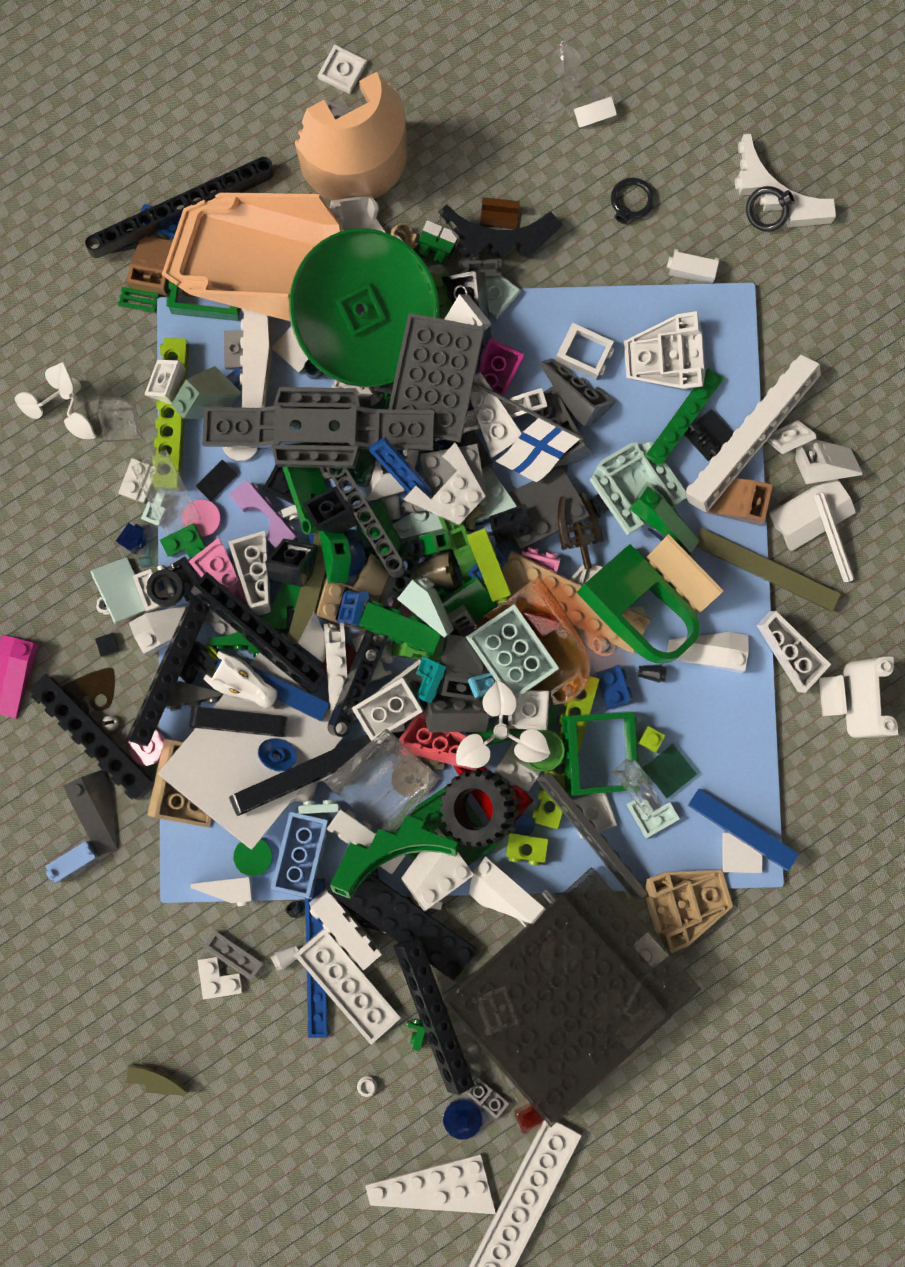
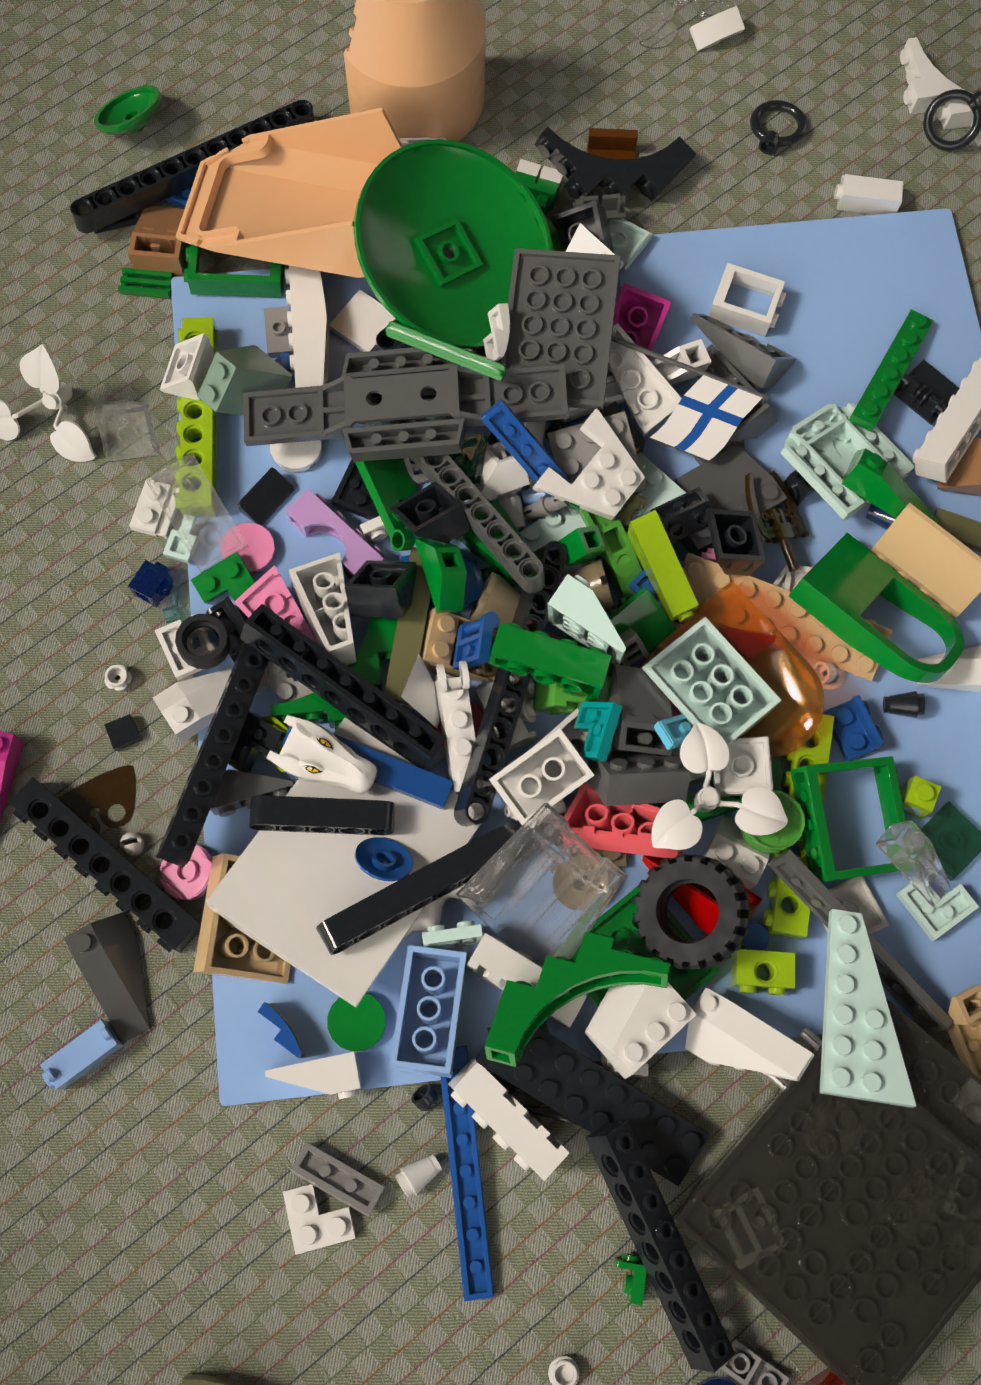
camera: 10 degrees left, 10 degrees down
(118, 589) = (136, 654): light aqua tile -> none
(131, 155) = (129, 111): none -> green dish
(206, 862) = (286, 1036): none -> blue slope
(347, 986) = (519, 1211): white plate -> none
(349, 395) = (446, 351): none -> axle
(388, 386) = (497, 340): none -> white slope
(542, 549) = (735, 540): none -> black slope
(576, 901) = (858, 1037): none -> light aqua wing
(668, 353) = (856, 292): white wedge -> none

